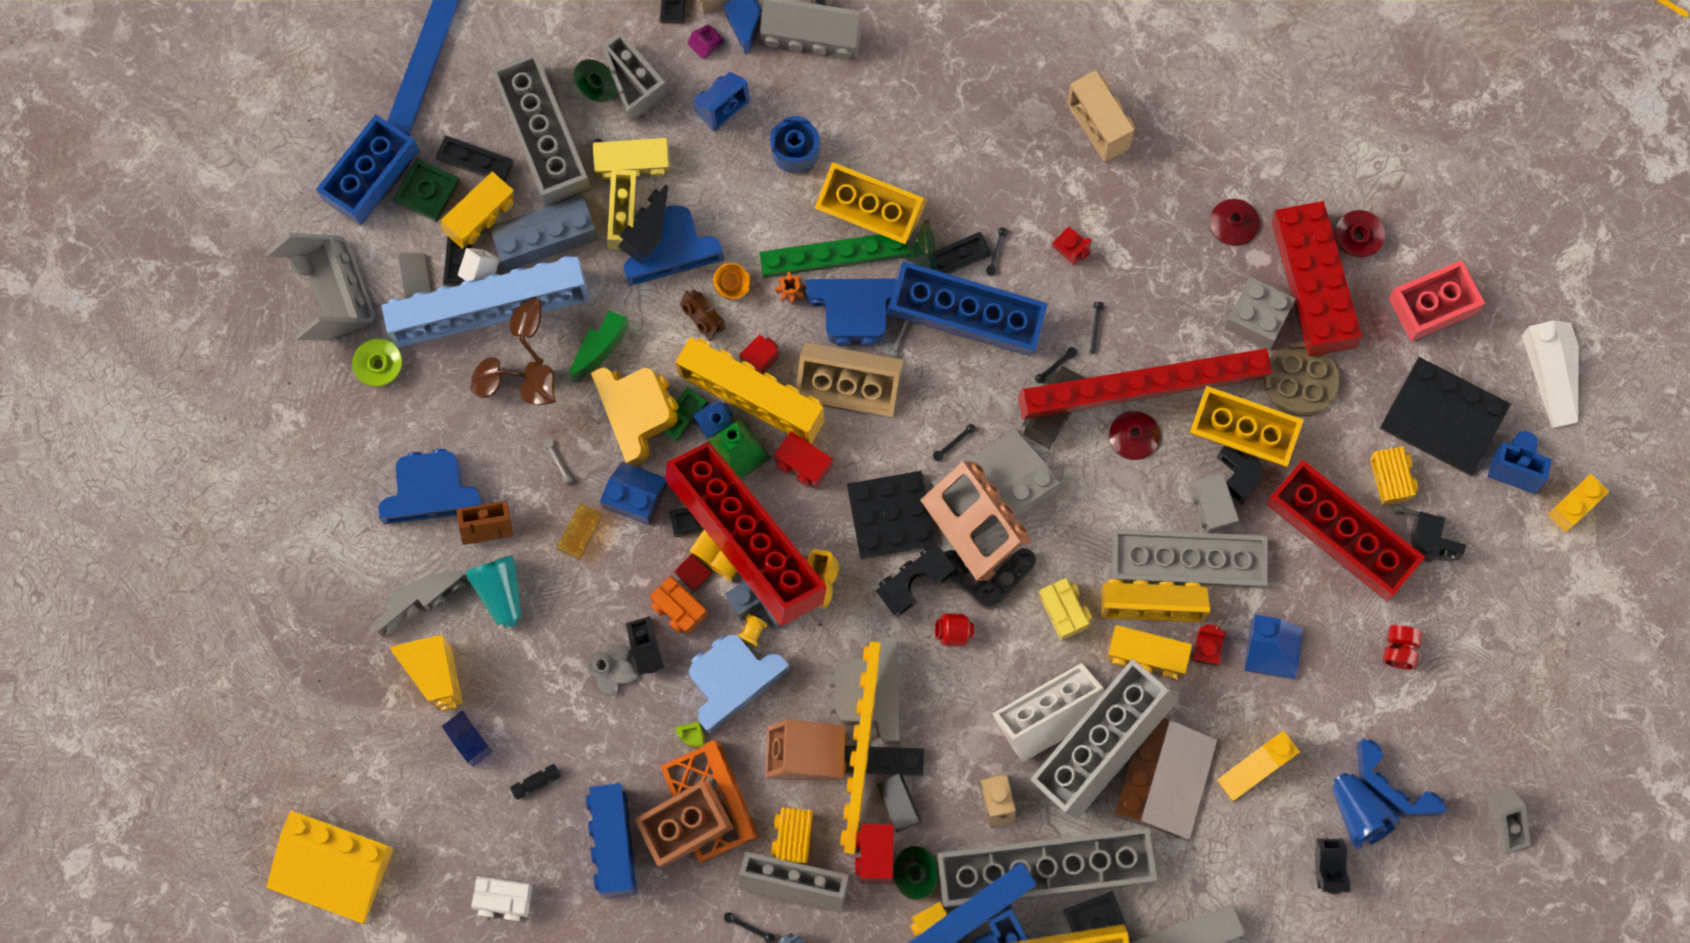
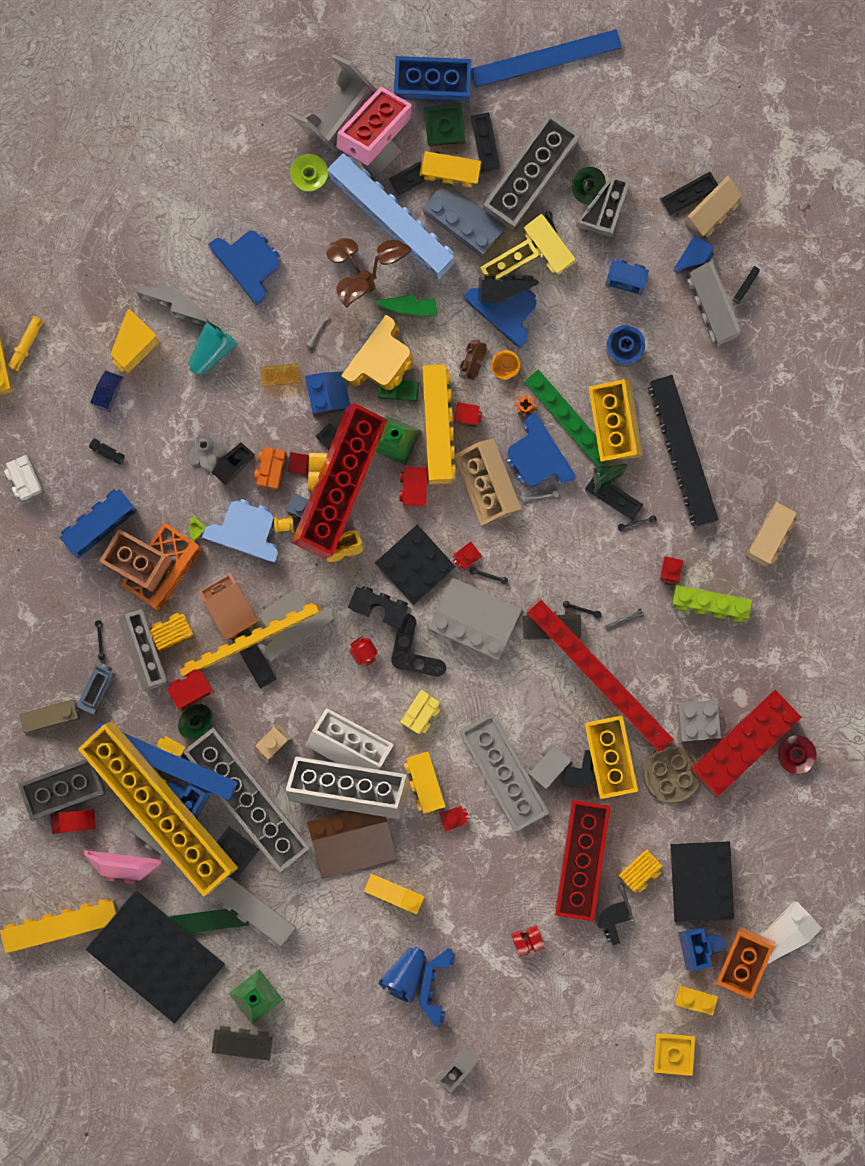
camera: 55 degrees right, 10 degrees up
(353, 806) = (25, 343): none -> yellow pin
(375, 257) = (374, 126): none -> brick
(477, 264) = (411, 195): white brick -> none
(484, 522) = (247, 312): dark orange brick -> none
(704, 41) = (665, 238): magenta slope -> none
(713, 417) = (406, 411): blue brick -> none
(899, 803) = (232, 684): tile -> none
(917, 452) = (466, 556): none -> red bracket
(949, 155) = (683, 451): none -> black brick
(960, 529) = (428, 615): window -> none
(967, 308) = (579, 529): blue brick -> none
(1134, 447) = (558, 695): dark red dish -> none
(1135, 223) = (711, 602): none -> lime brick
(1154, 602) = (460, 767): yellow slope -> none
(1233, 232) = (749, 674): dark red dish -> none
(1273, 647) = (478, 860): blue slope -> none
(1331, 866) = (358, 976): black brick -> none
(1436, 300) = (778, 831): coral brick -> none
(1568, 420) = (746, 962): none -> orange brick
(1627, 564) = (674, 1054): none -> yellow plate

